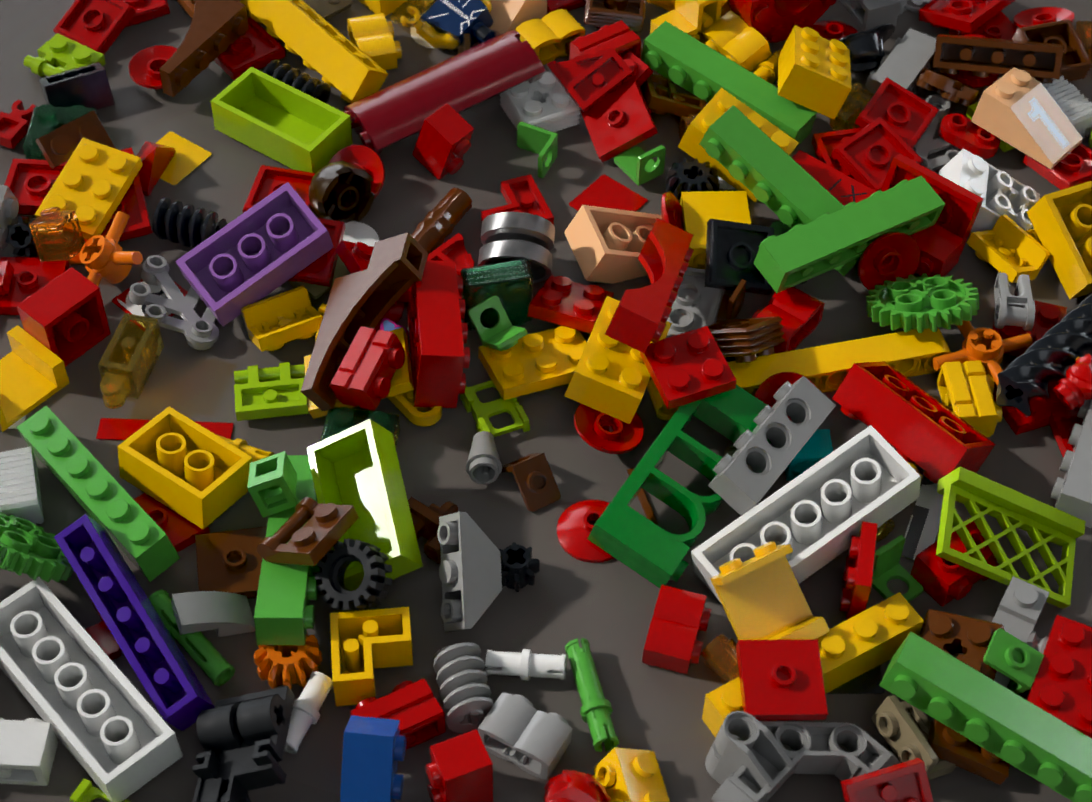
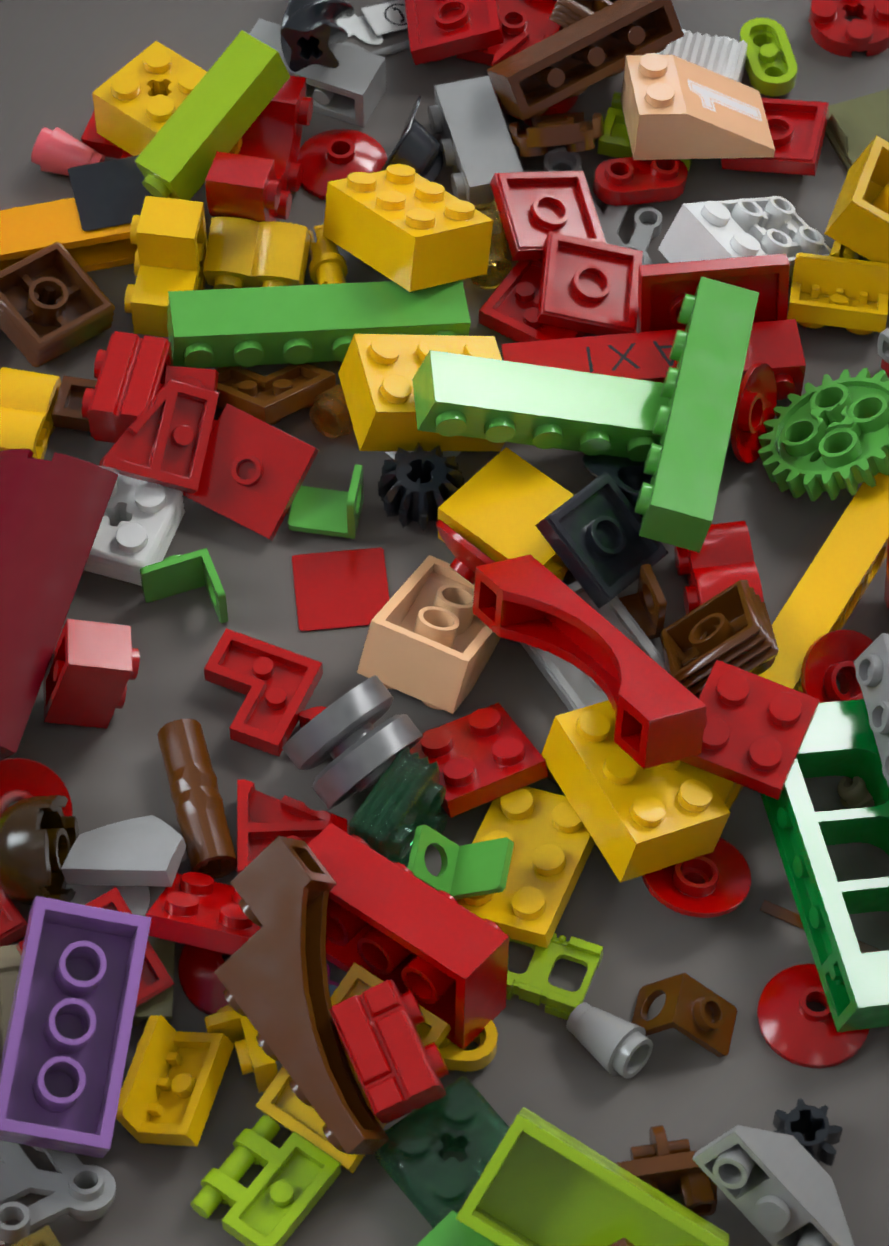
camera: 45 degrees left, 5 degrees up
(373, 222) = (126, 854): none -> light grey slope

